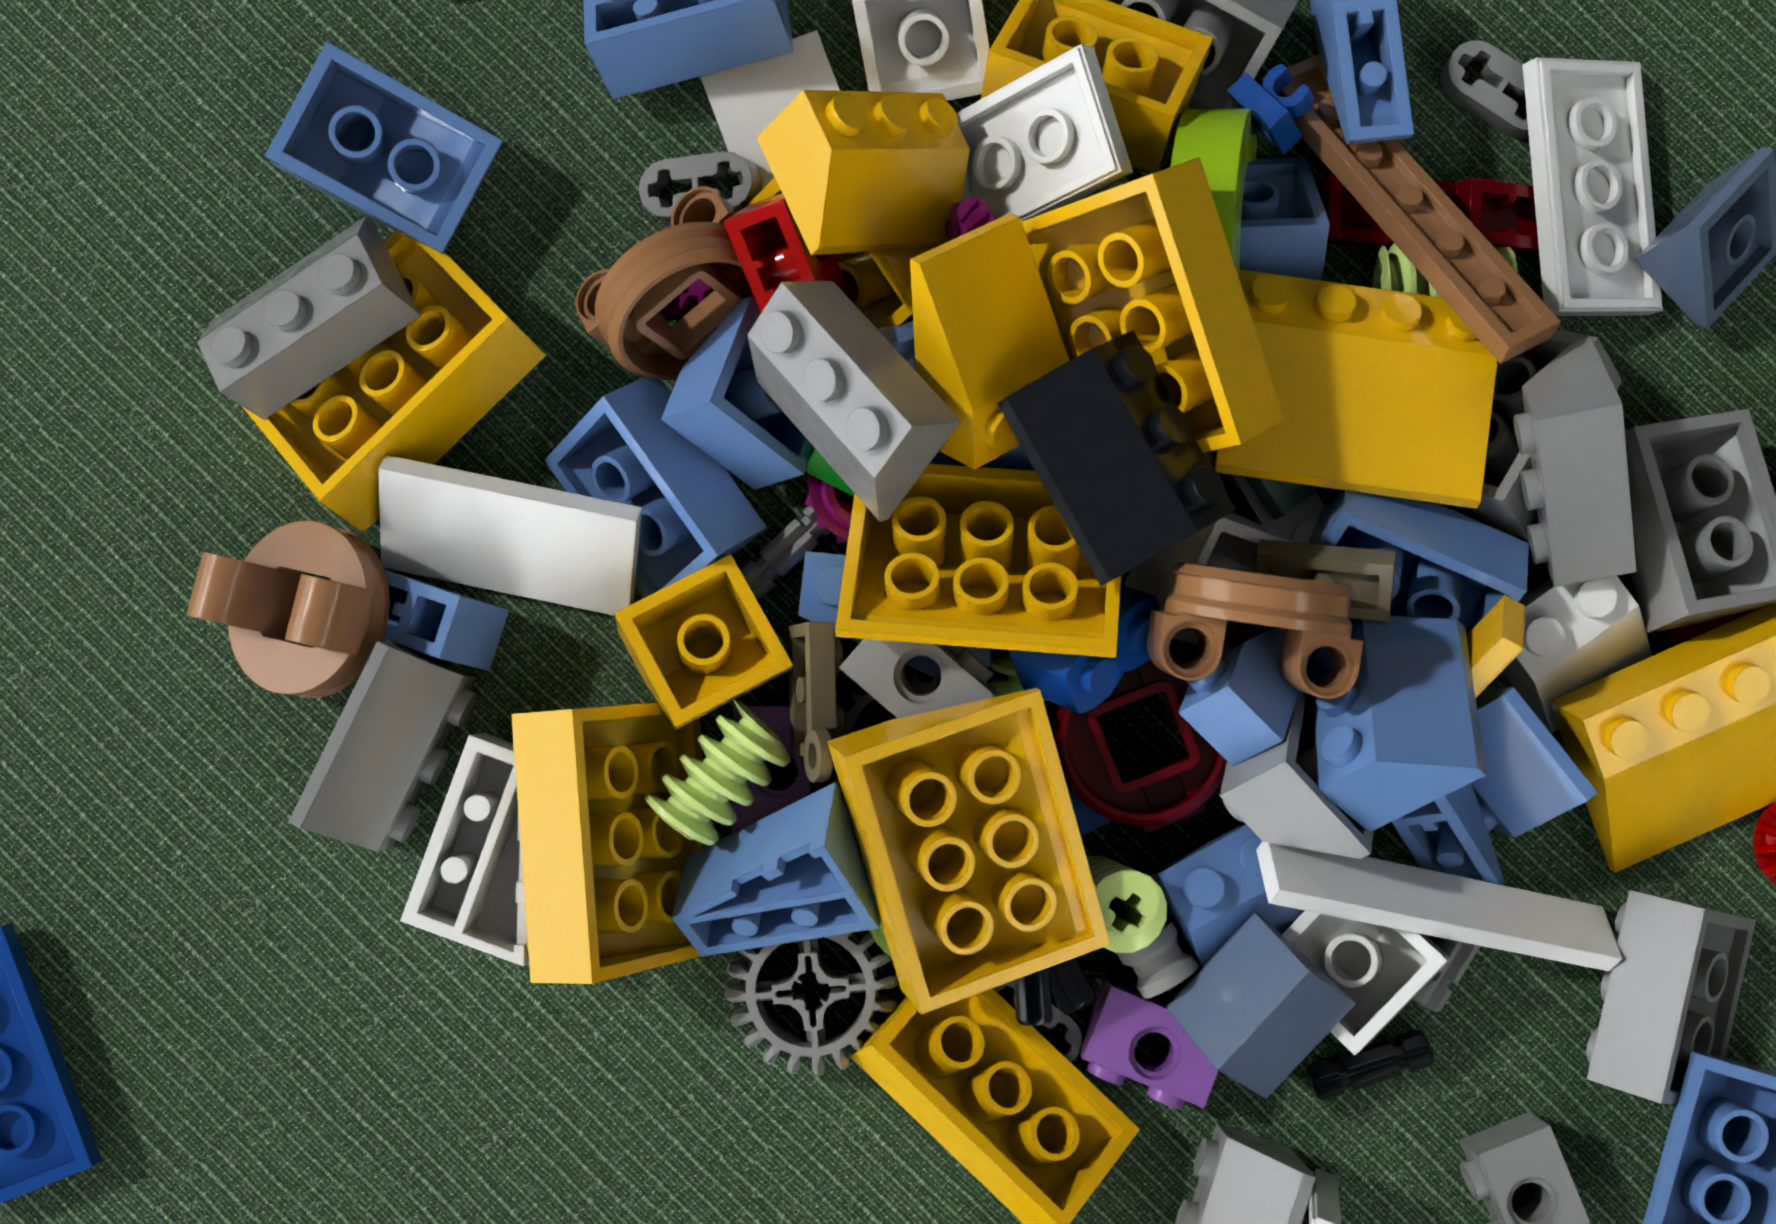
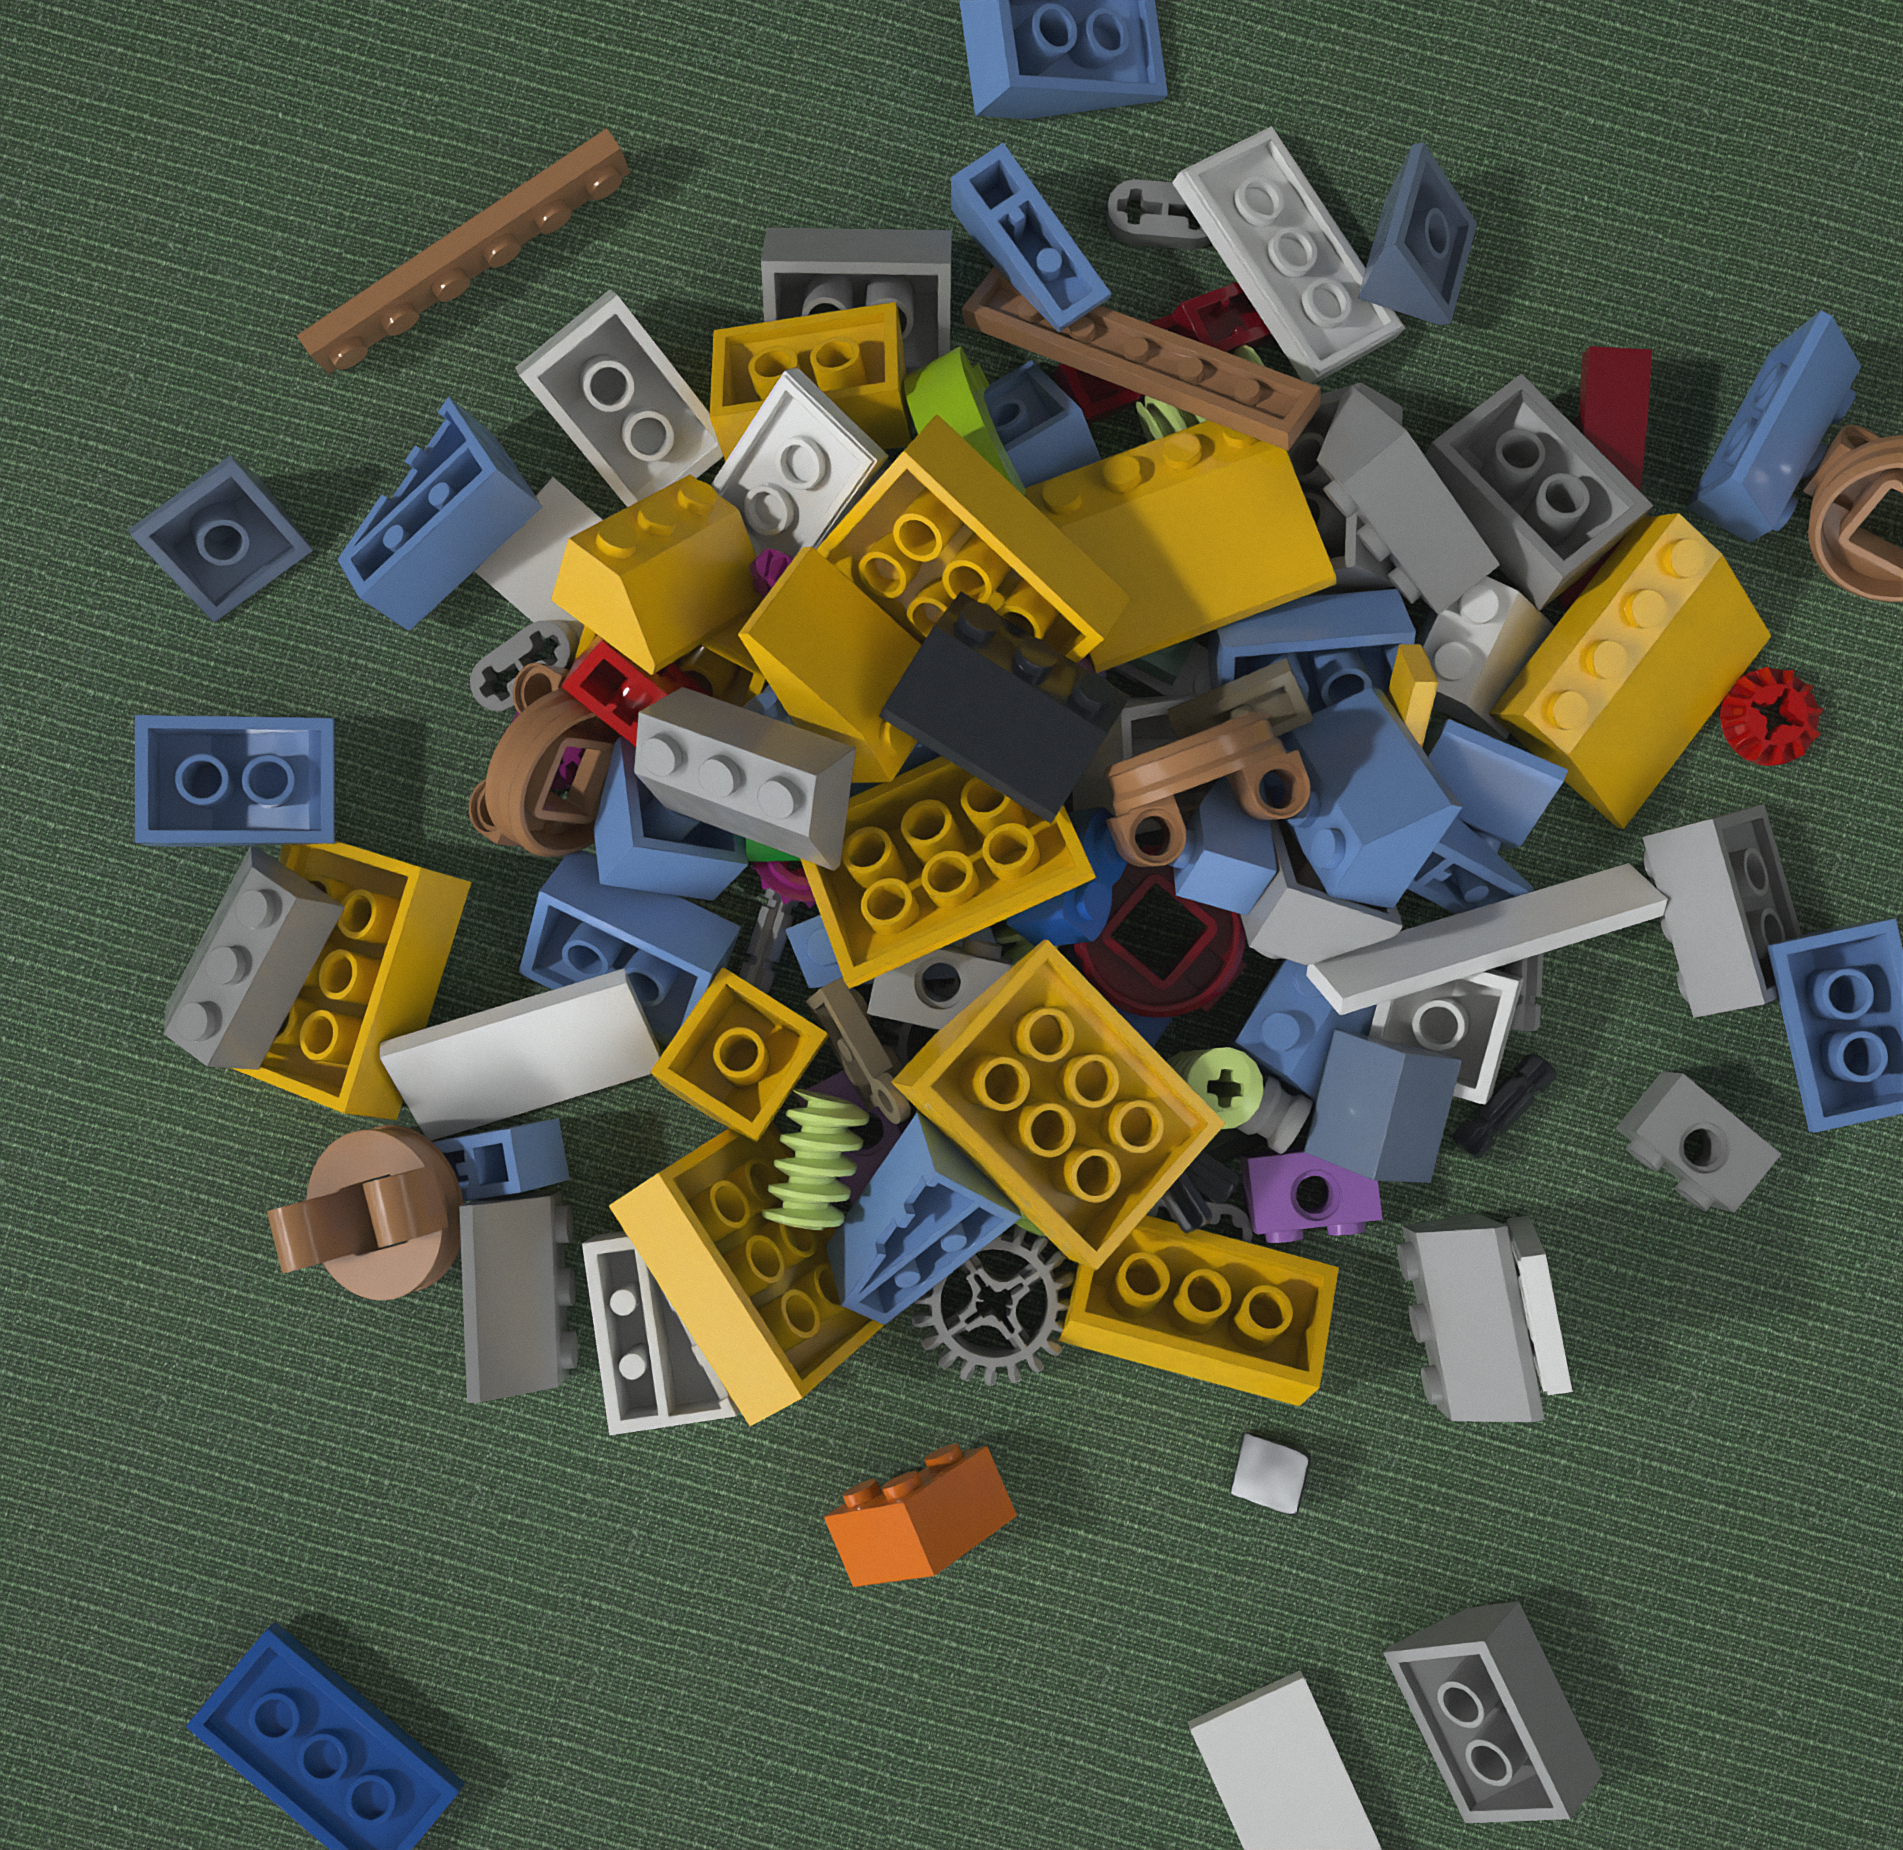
camera: 30 degrees left, 0 degrees up
(639, 1150) = (921, 1518): none -> orange brick
(1269, 111) = (977, 338): blue tile -> none

